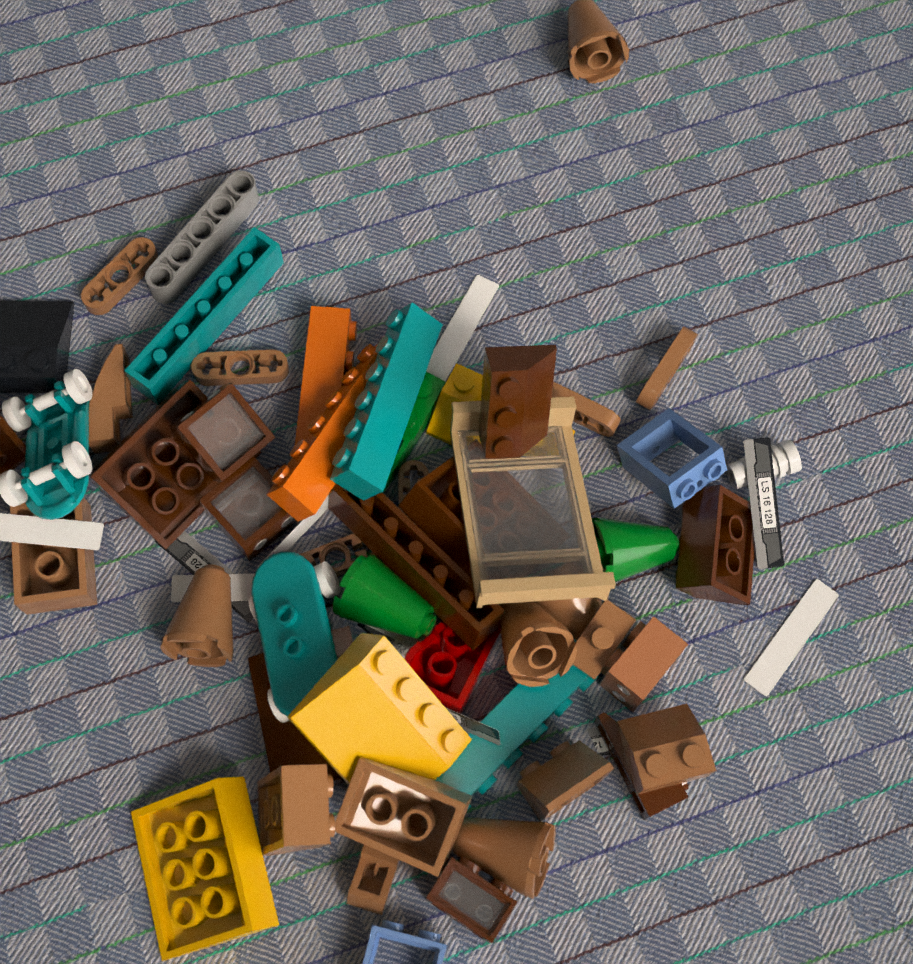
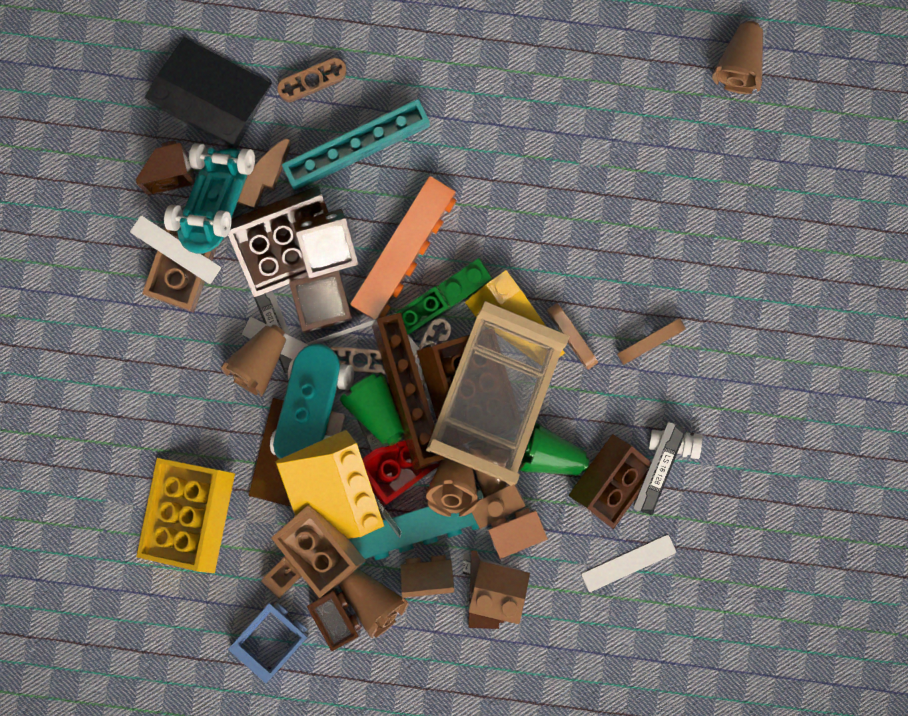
camera: 30 degrees right, 15 degrees up
(200, 251) = (389, 69): light grey beam -> none
(215, 375) = (382, 193): medium nougat beam -> none
(295, 809) = (254, 513): medium nougat slope -> none
(306, 479) = (404, 279): orange brick -> none
(386, 402) = (443, 277): teal brick -> none
(461, 327) = (528, 237): white sticker -> none
(515, 399) = (523, 326): reddish brown slope -> none
(658, 436) = (610, 388): medium blue window -> none

